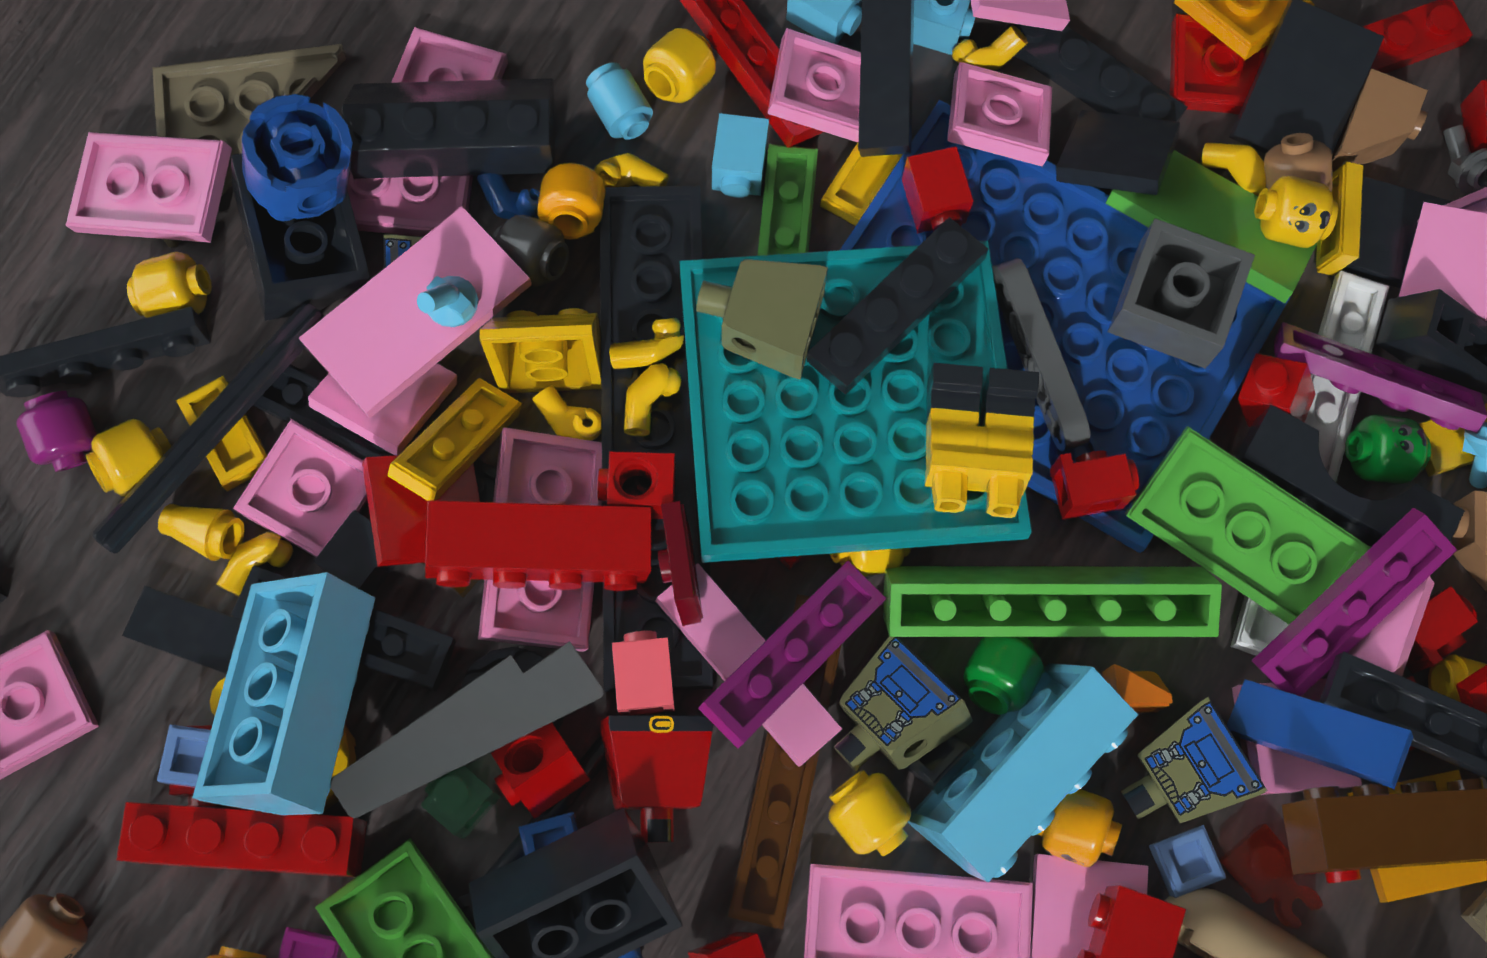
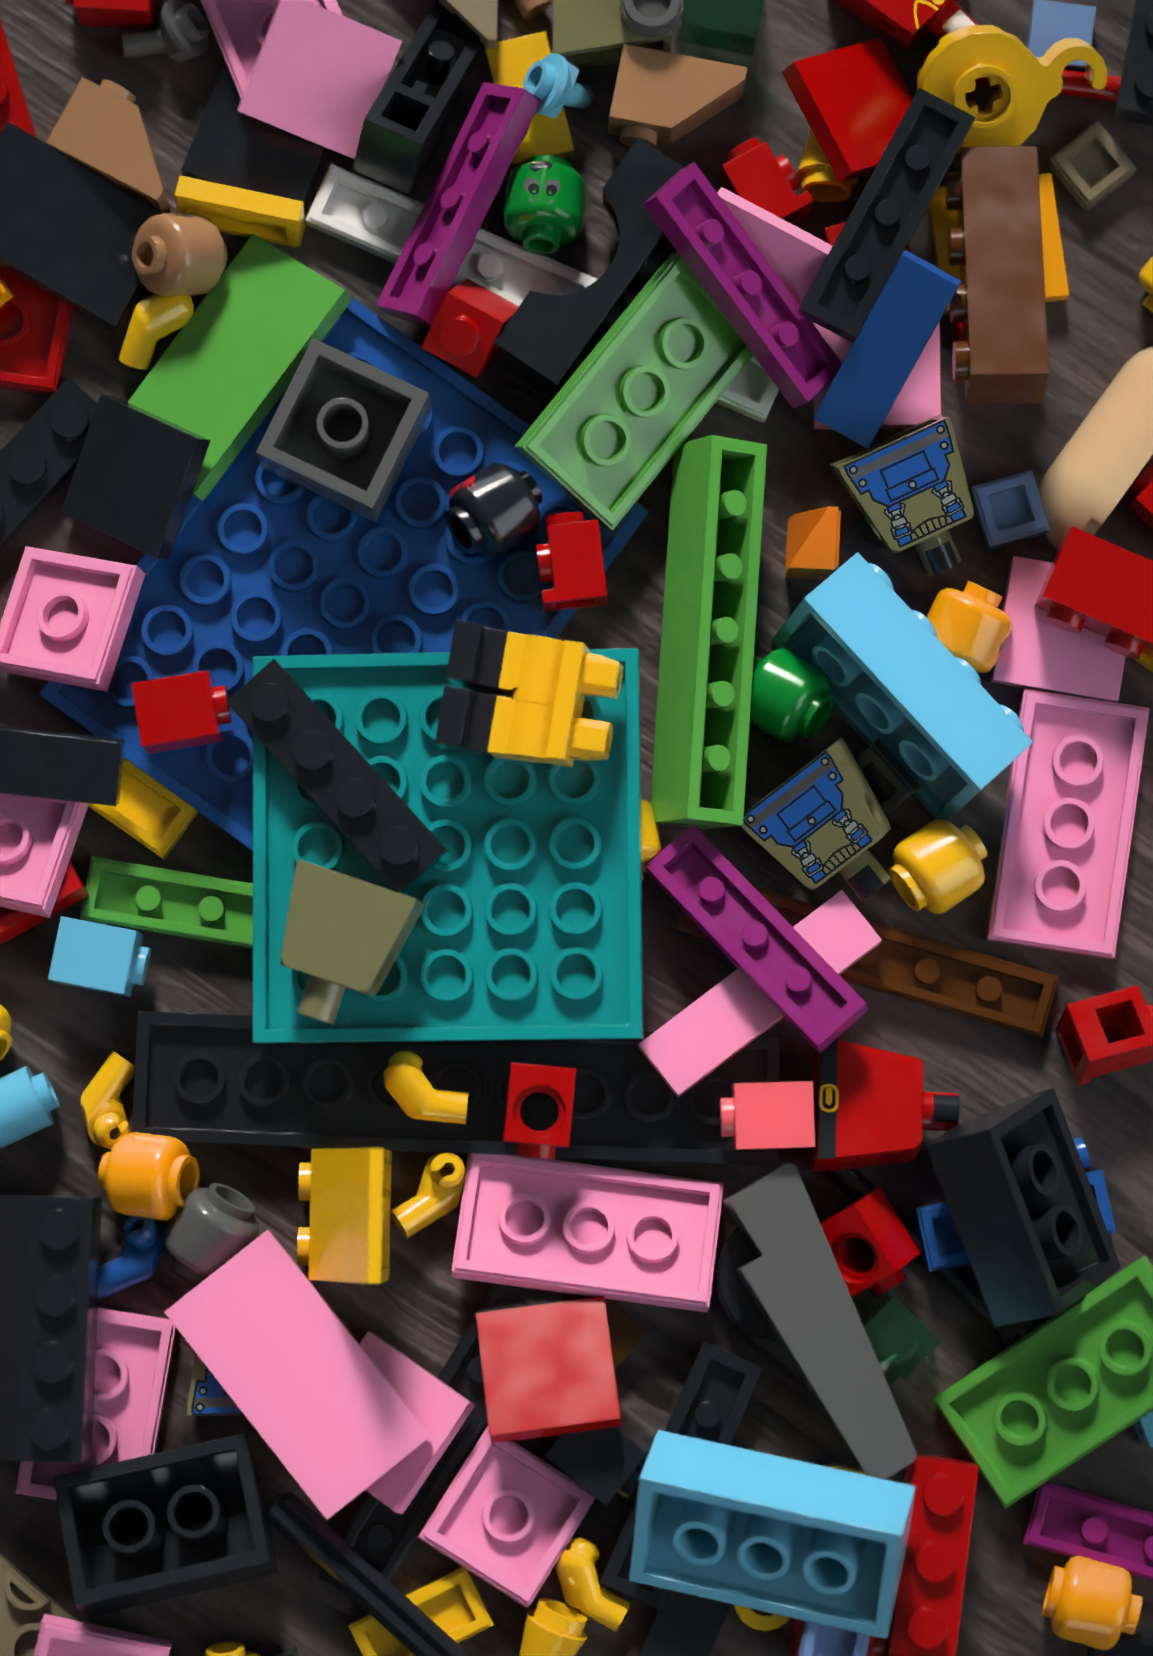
camera: 85 degrees left, 10 degrees up
(296, 157) = (97, 1515): blue brick -> none
(449, 301) = (299, 1328): medium azure plate -> none
(454, 440) = (463, 1330): yellow tile -> none
(537, 544) = (609, 1232): red brick -> none
(649, 351) = (365, 1083): yellow arm -> none
(678, 563) = (645, 1065): dark red plate -> none
(1040, 354) = (403, 609): dark grey beam -> none
(1130, 417) = (494, 510): none -> black head
(1265, 871) = (1023, 430): clear red plate -> none
(1296, 211) = (241, 270): yellow head -> none

